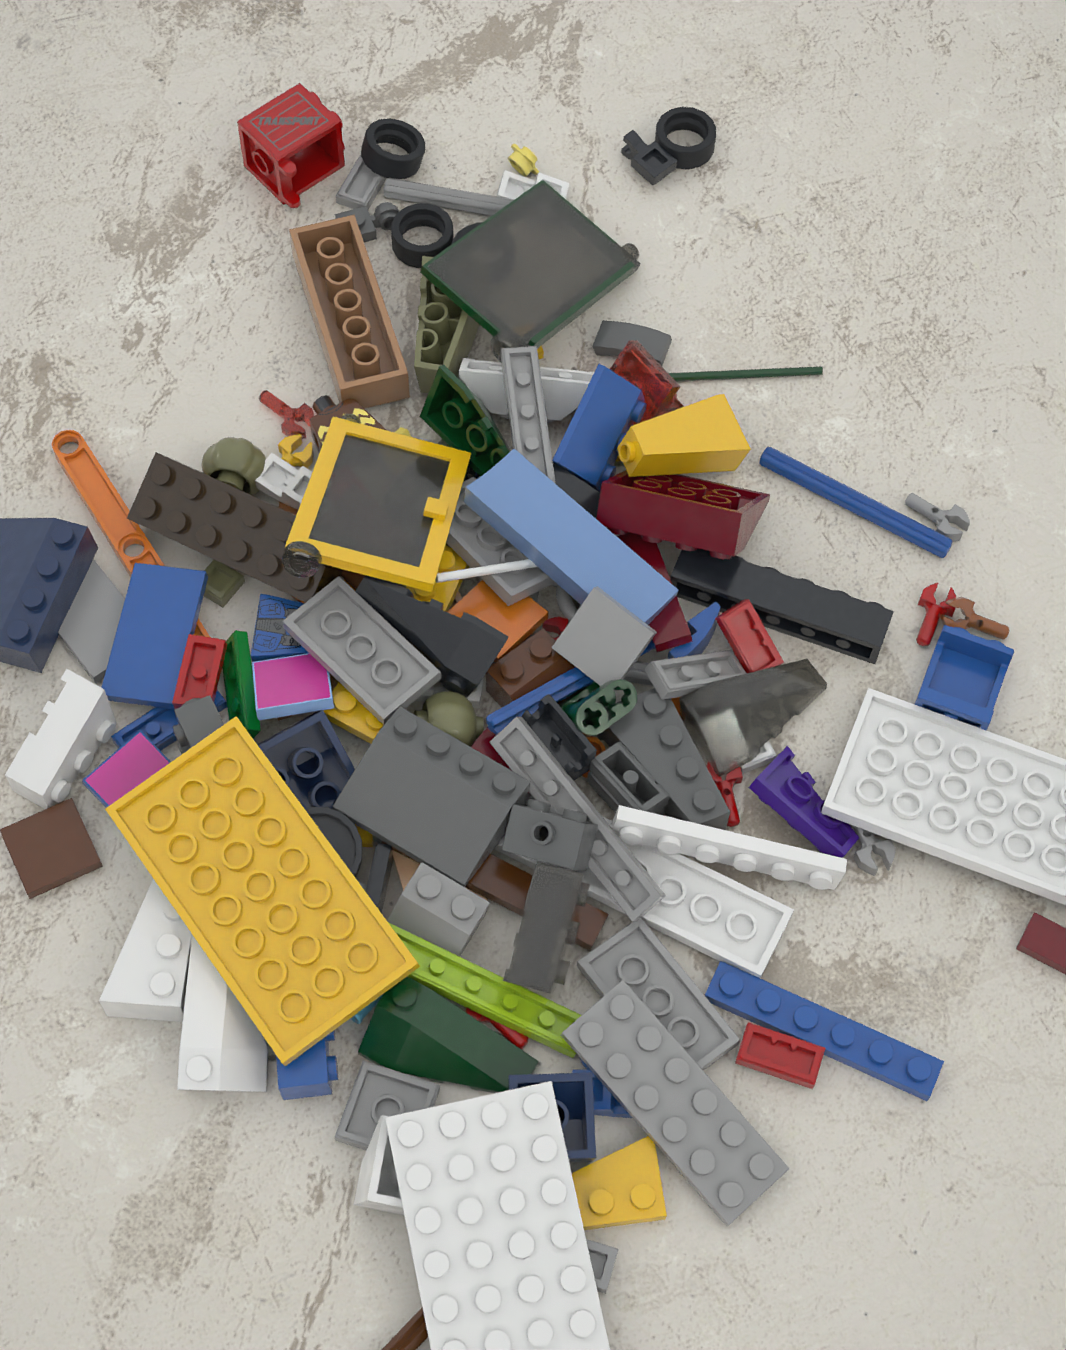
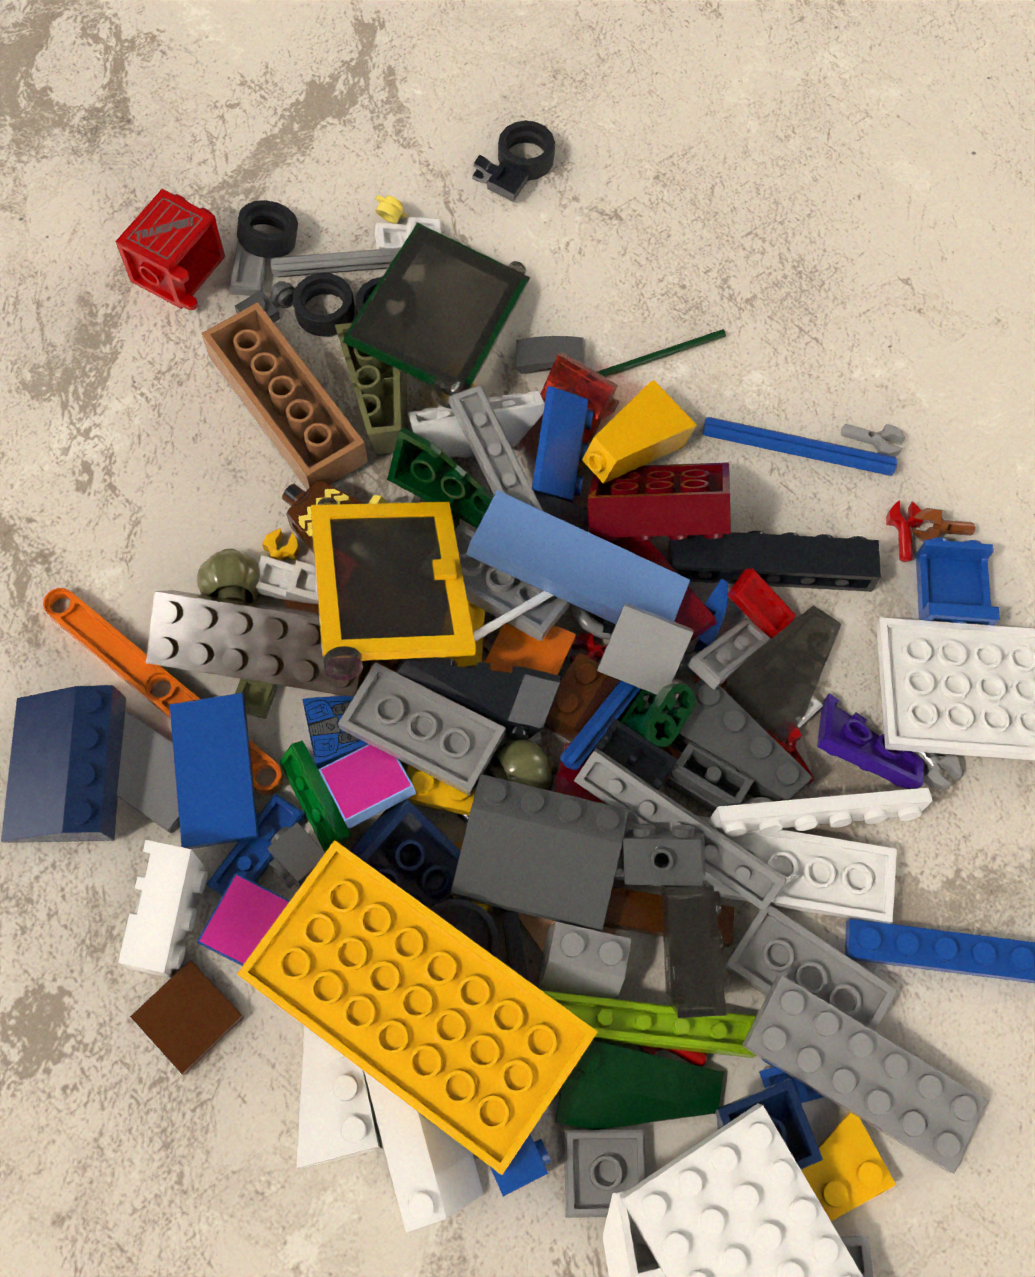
camera: 20 degrees left, 5 degrees up
(199, 669) = (271, 795): red plate -> none
(289, 427) = (266, 524): clear red bar -> none
(780, 1055) = (935, 992): red plate -> none

